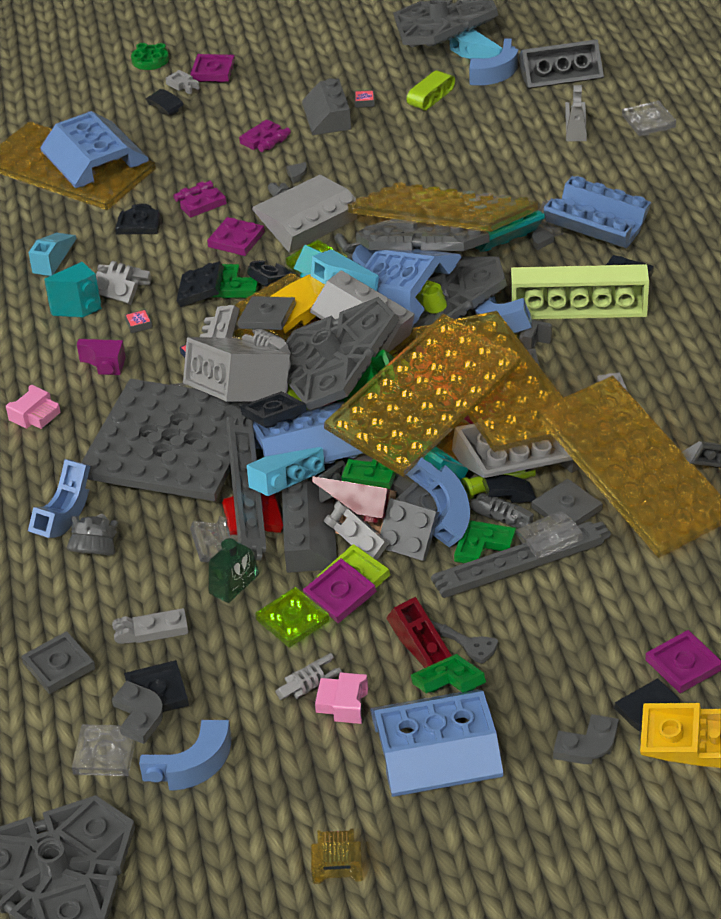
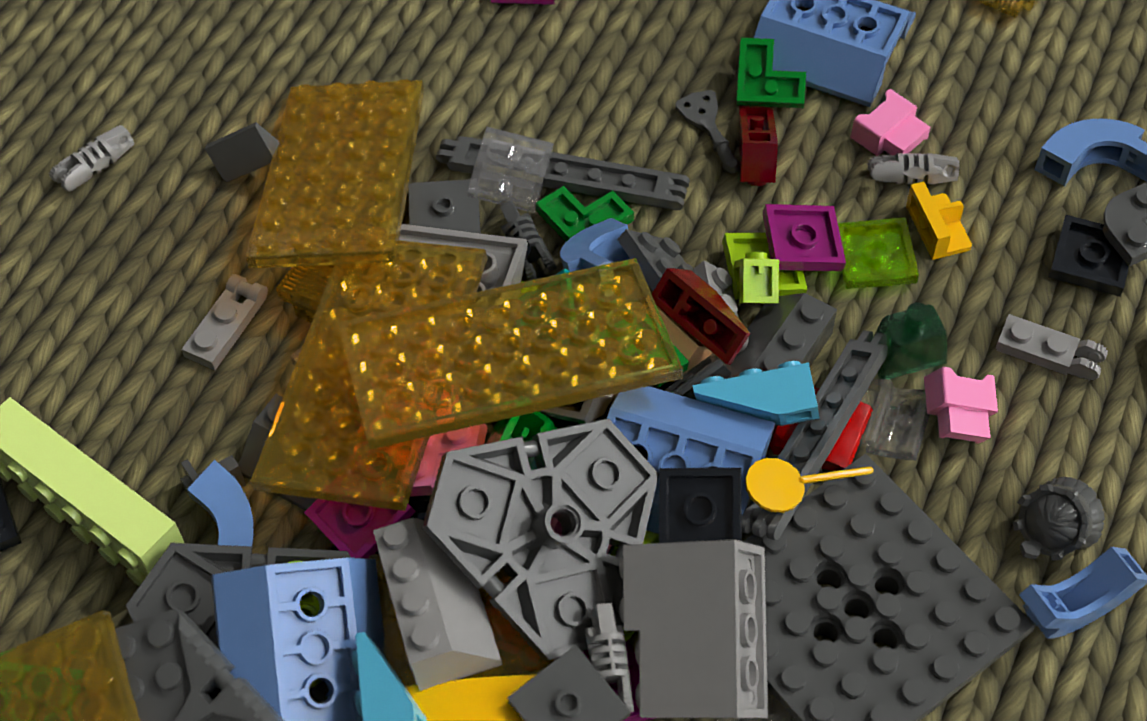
camera: 145 degrees left, 15 degrees up
(181, 555) = (961, 404): none -> bright pink piece
(239, 434) = (780, 487): none -> yellow piece
(269, 657) = (937, 222): none -> yellow panel
(347, 547) = (758, 279): none -> lime bracket

